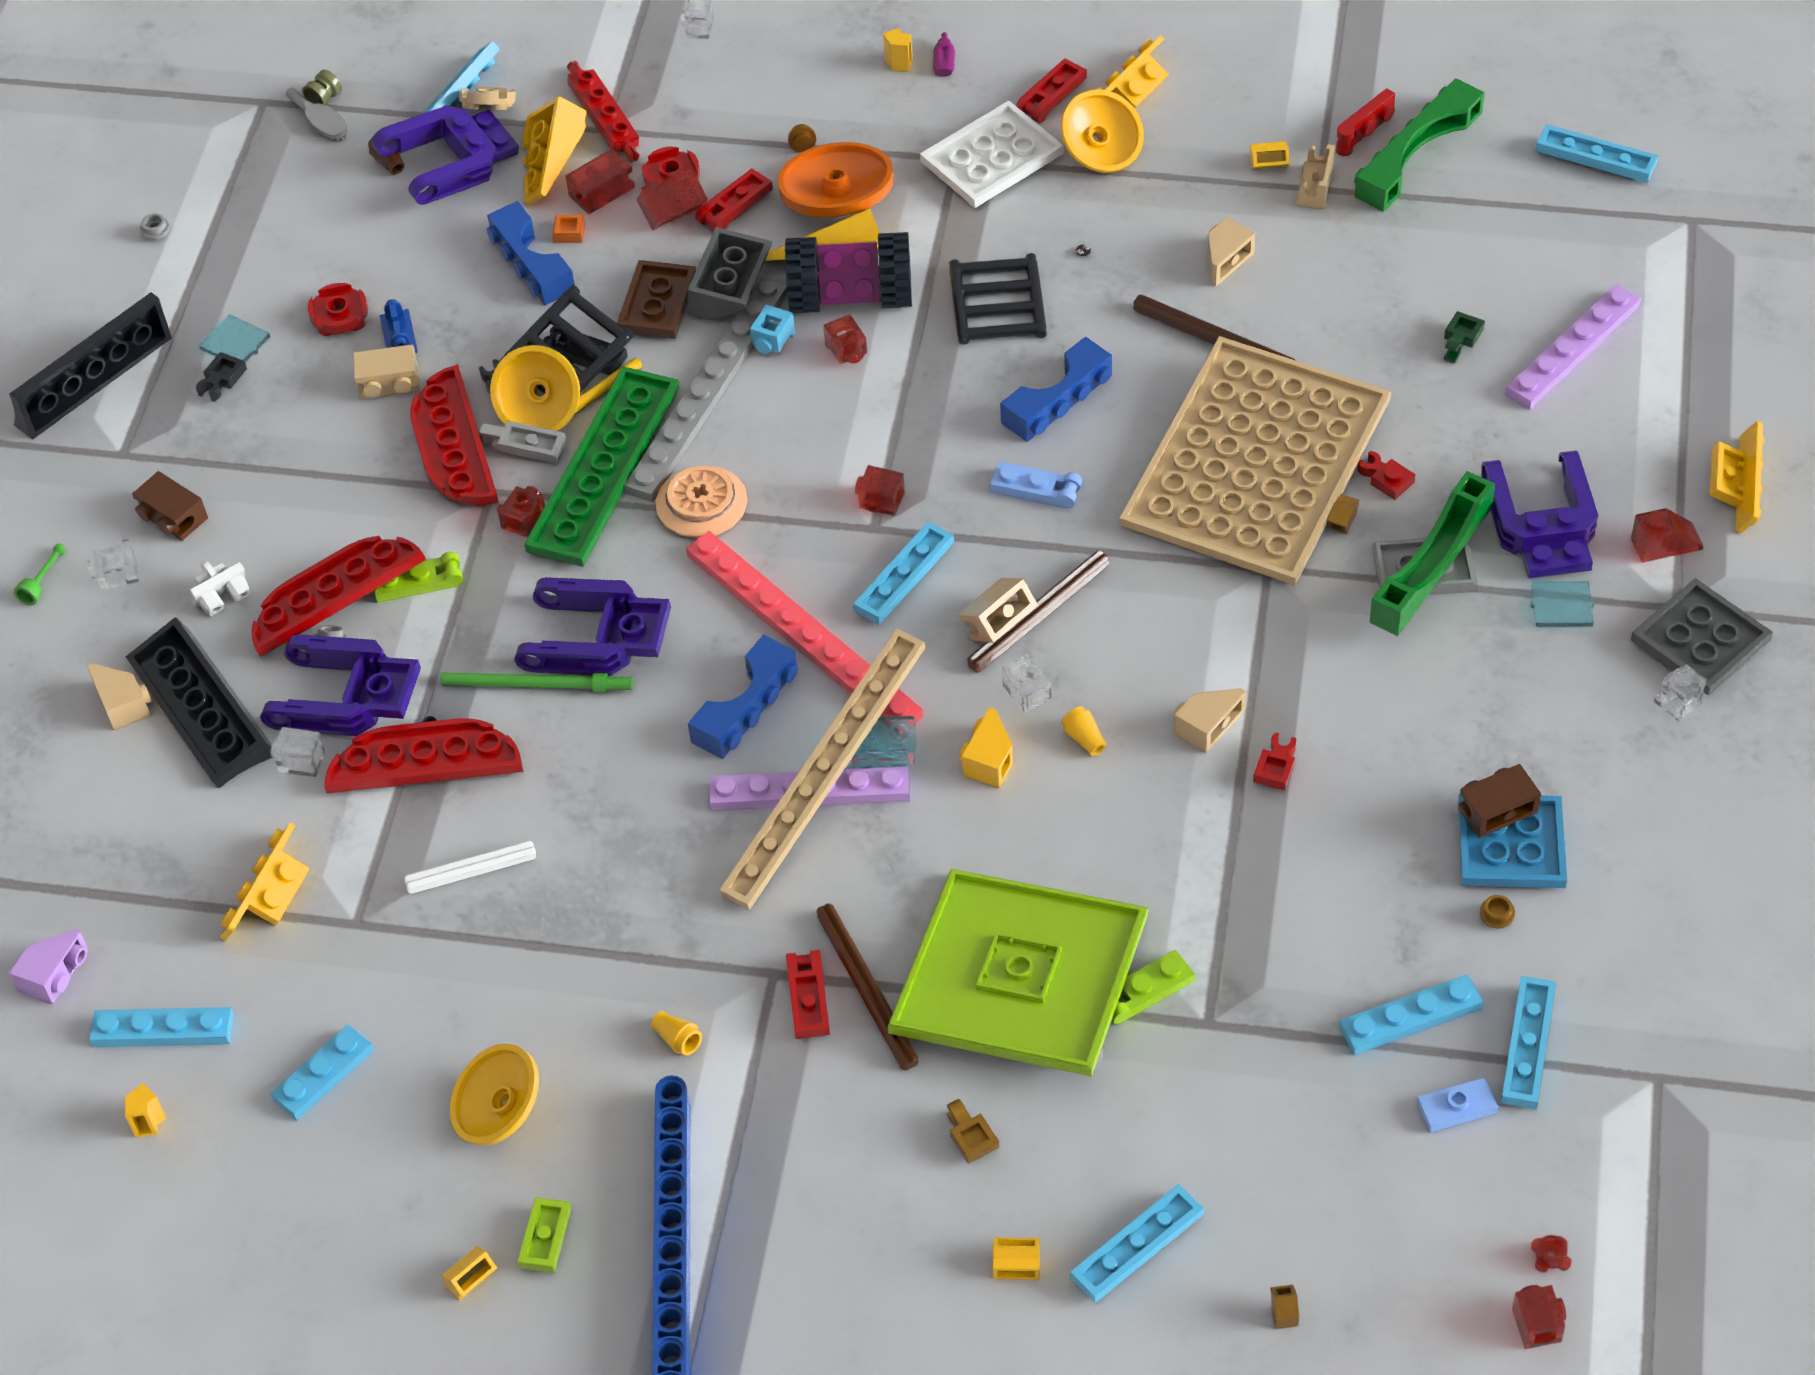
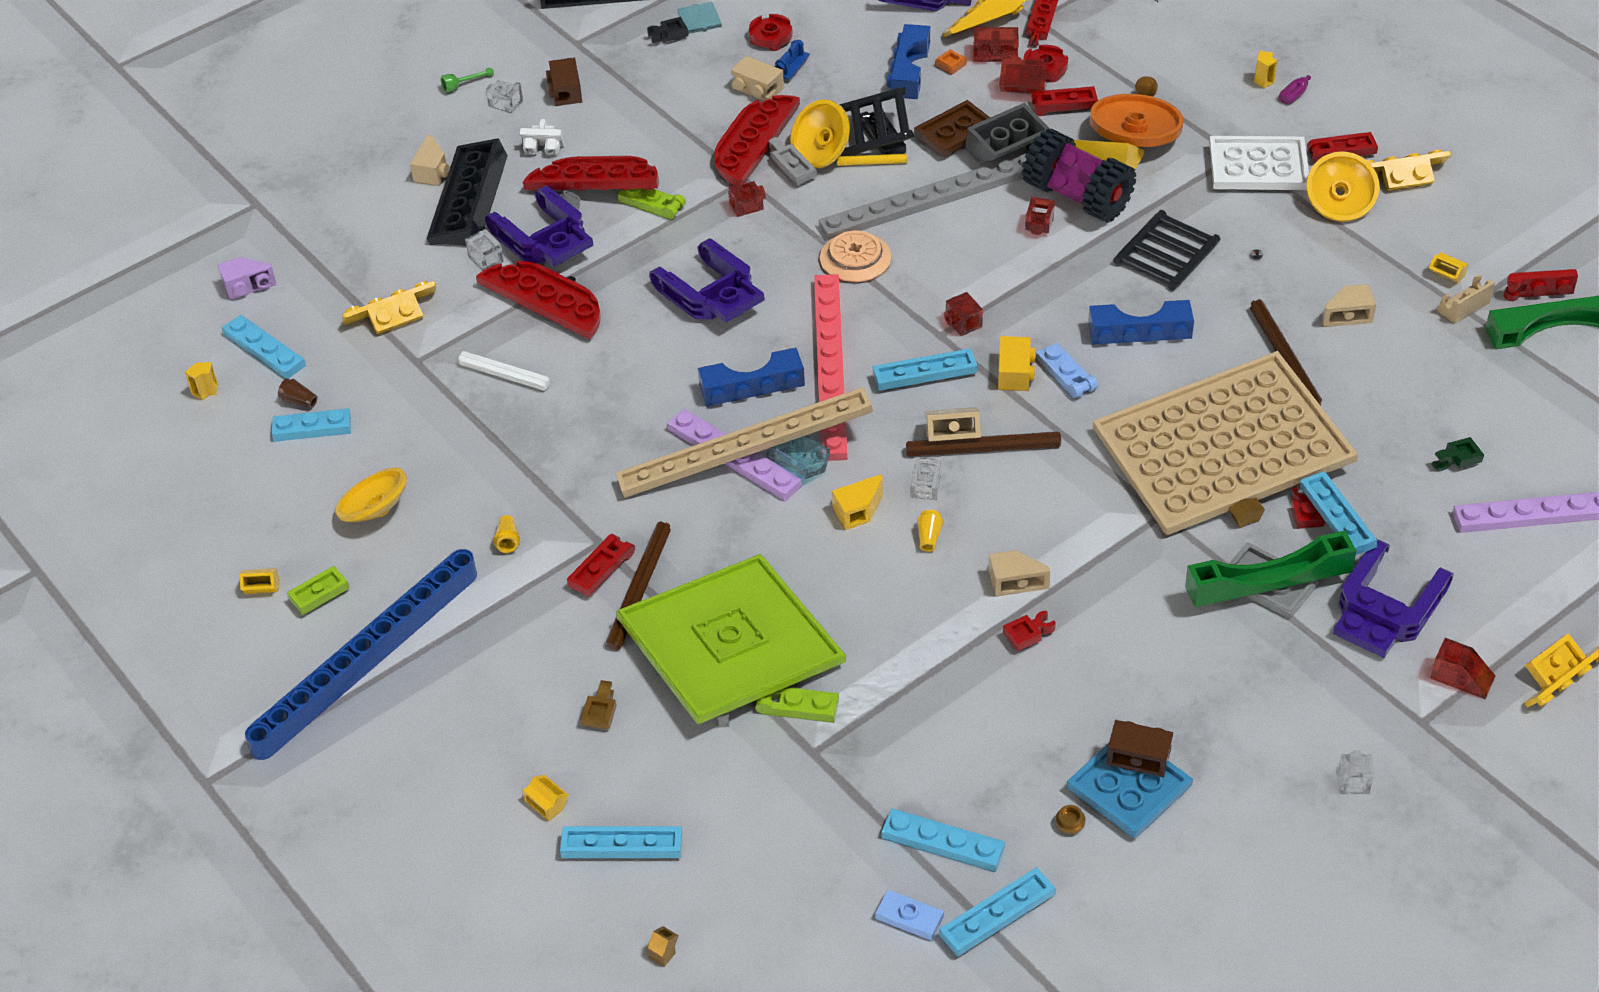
camera: 40 degrees right, 5 degrees down
(269, 1050) = (296, 393): none -> reddish brown cone
(598, 682) = (681, 316): bright green bar -> none
(602, 466) = (818, 200): green plate -> none
(770, 336) = (1002, 184): medium azure brick -> none
(984, 509) = (1015, 362): none -> yellow brick
(1426, 457) = (1337, 511): none -> medium azure plate
(1562, 604) = (1340, 666): clear light blue piece -> none
(1703, 632) = (1415, 750): dark grey plate -> none

